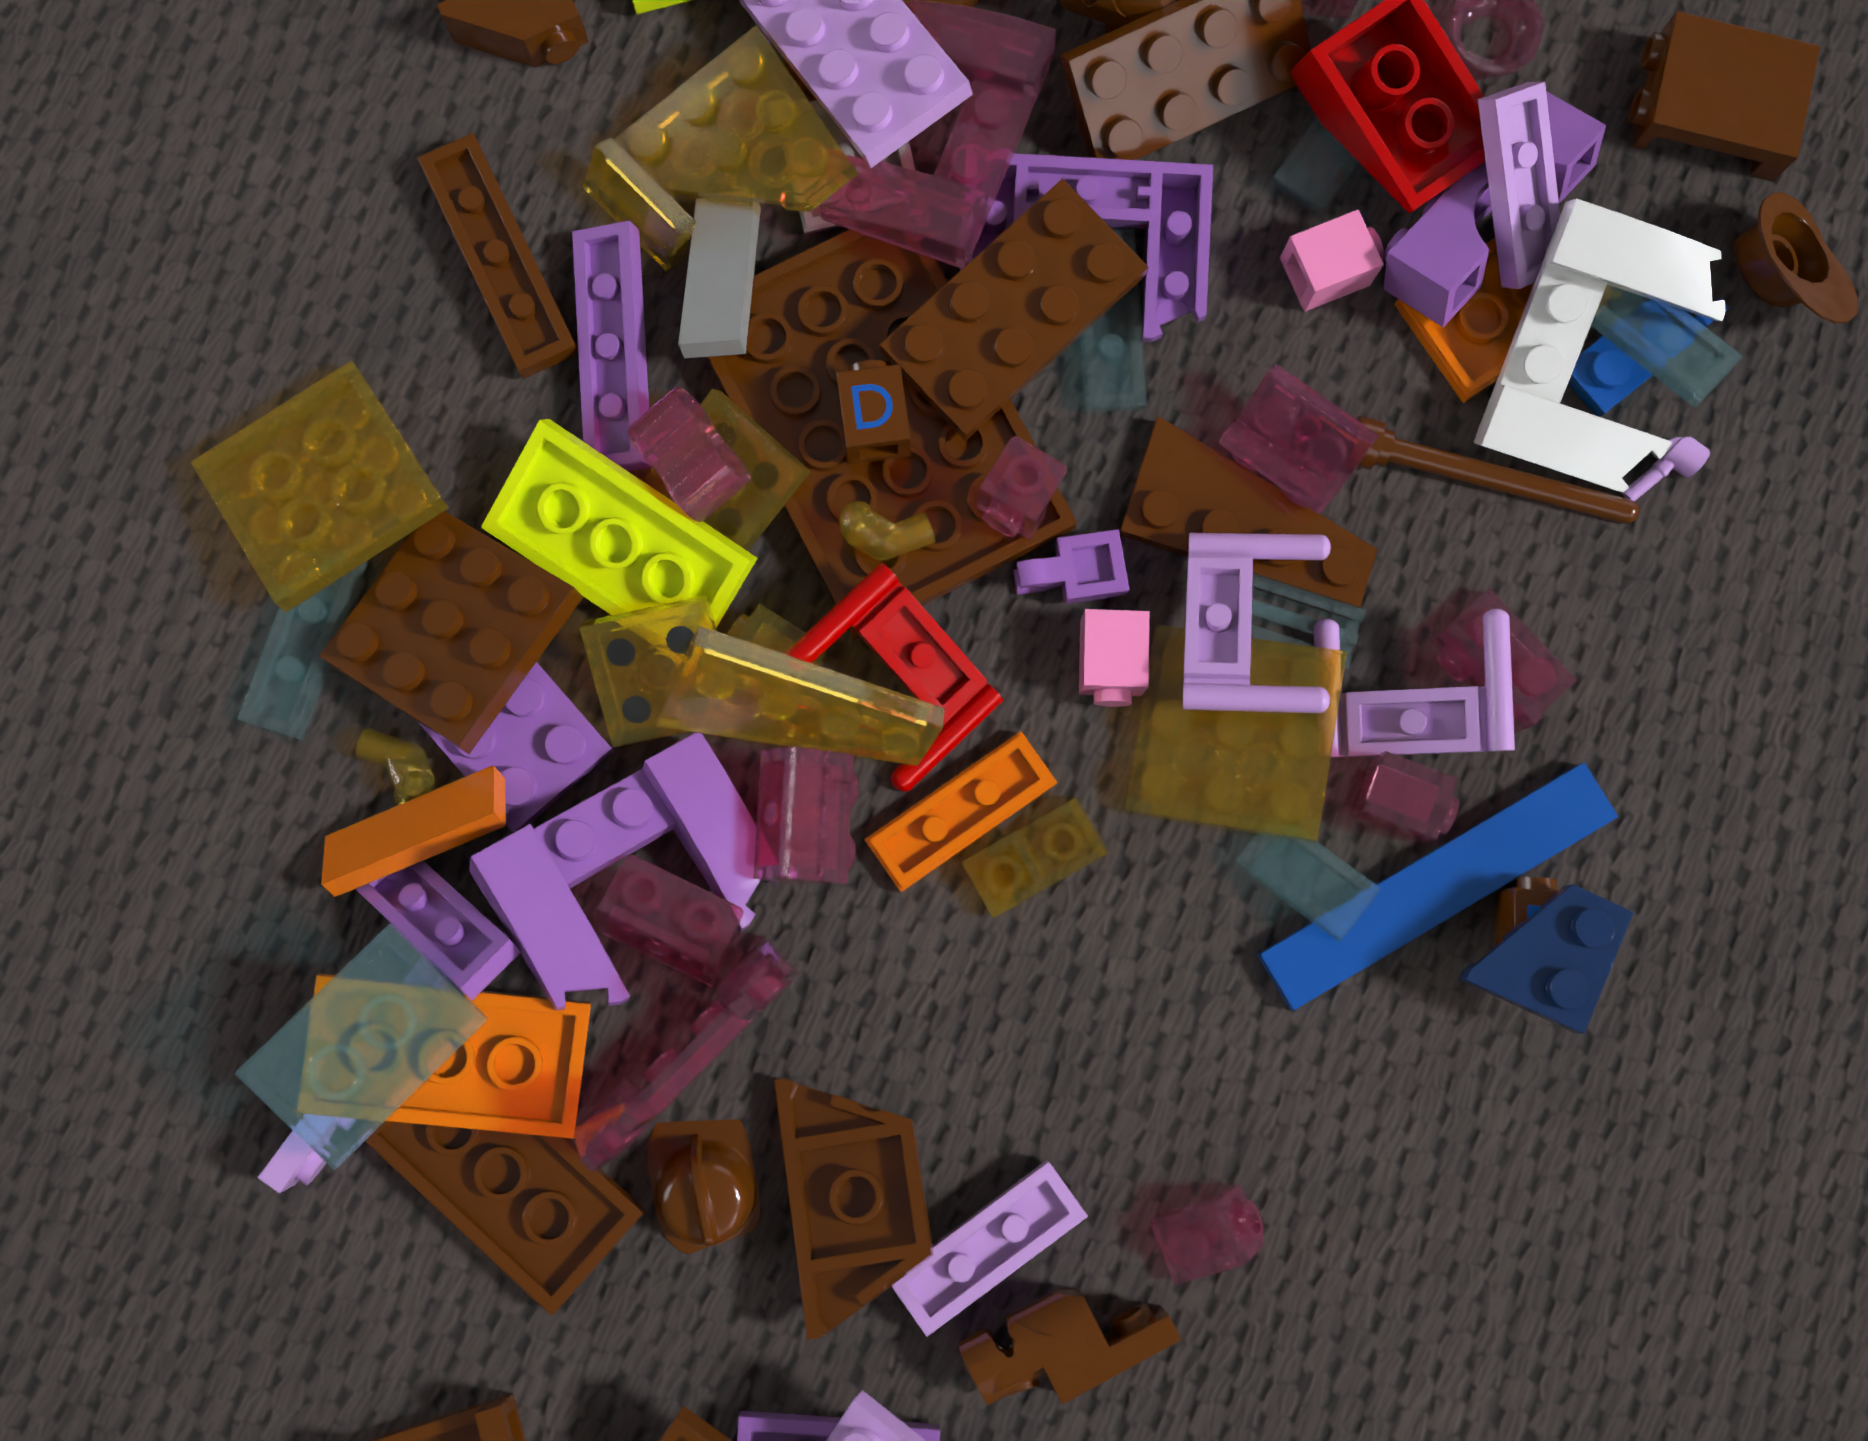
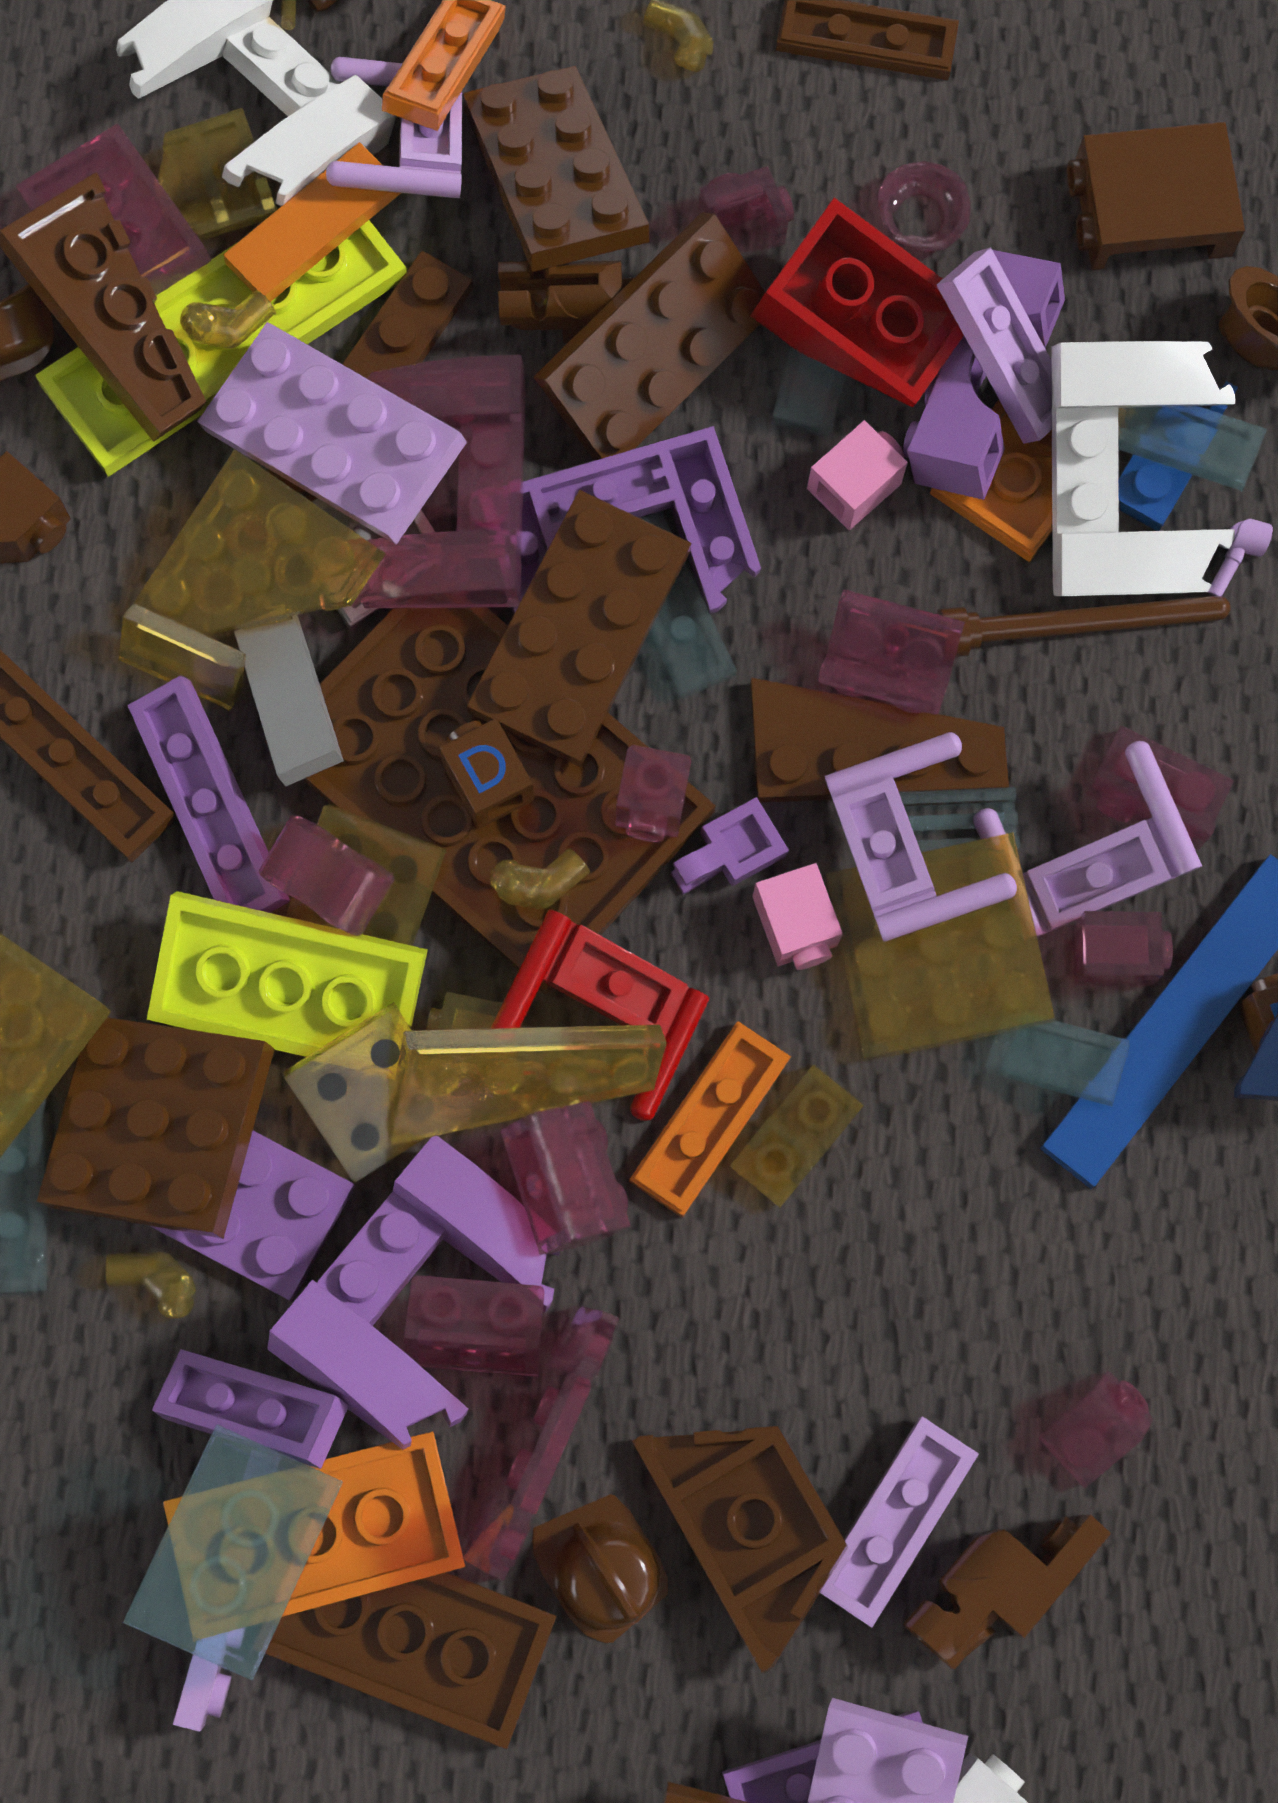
camera: 20 degrees left, 5 degrees down
(414, 831) = (195, 1334): orange tile -> none

